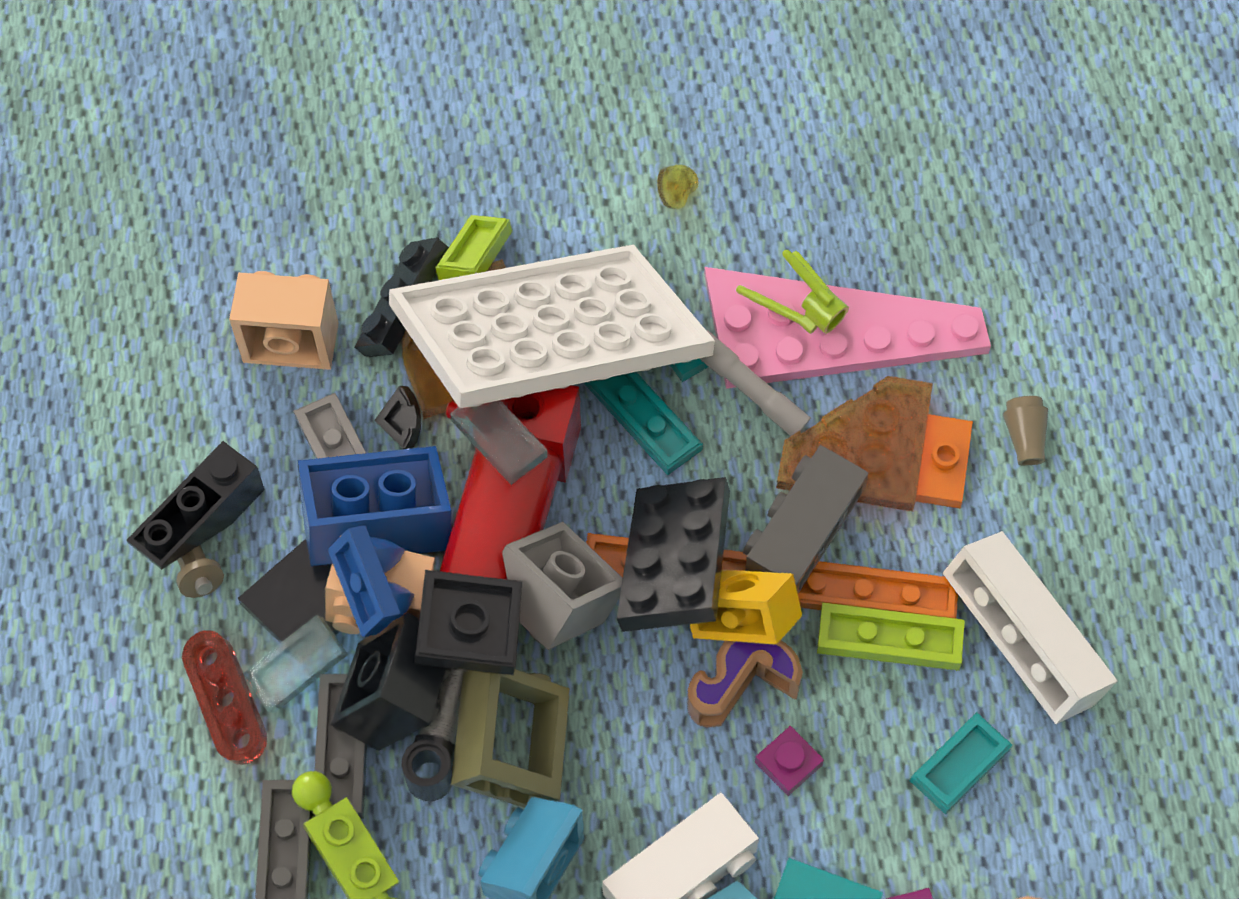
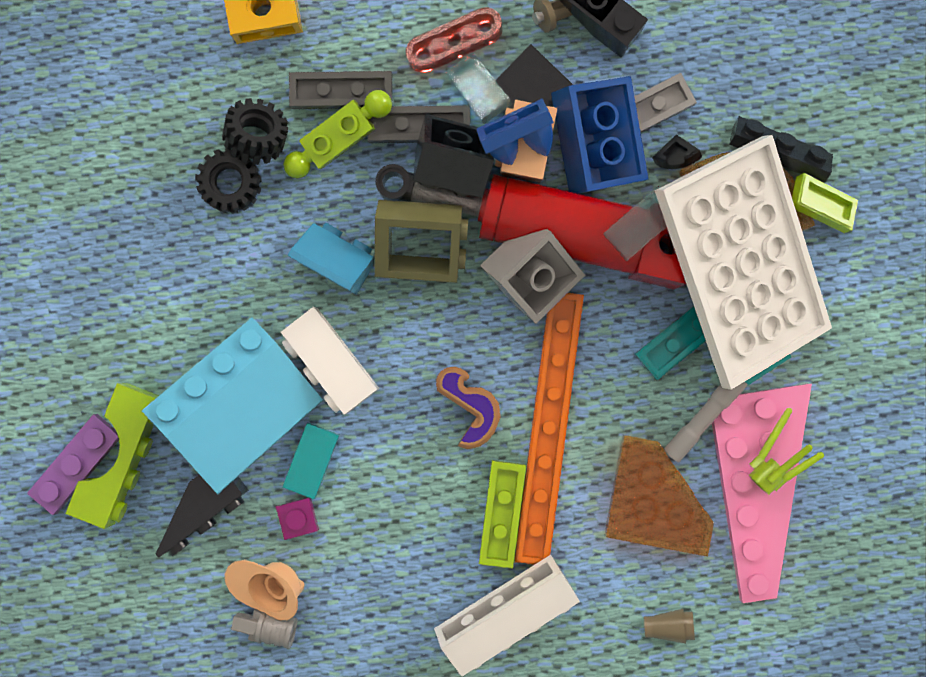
camera: 90 degrees right, 25 degrees up
(284, 320) = (755, 58): light nougat brick -> none
(469, 622) = (488, 205): black tile -> none
(674, 555) = (555, 357): black plate -> none
(675, 185) = (888, 361): clear yellow piece -> none
(752, 608) = (515, 407): yellow brick -> none
(789, 760) = (410, 437): magenta plate -> none
(806, 516) = (586, 455): dark grey brick -> none
(944, 461) = (645, 562): orange plate -> none
(961, 763) = (409, 558): teal tile -> none

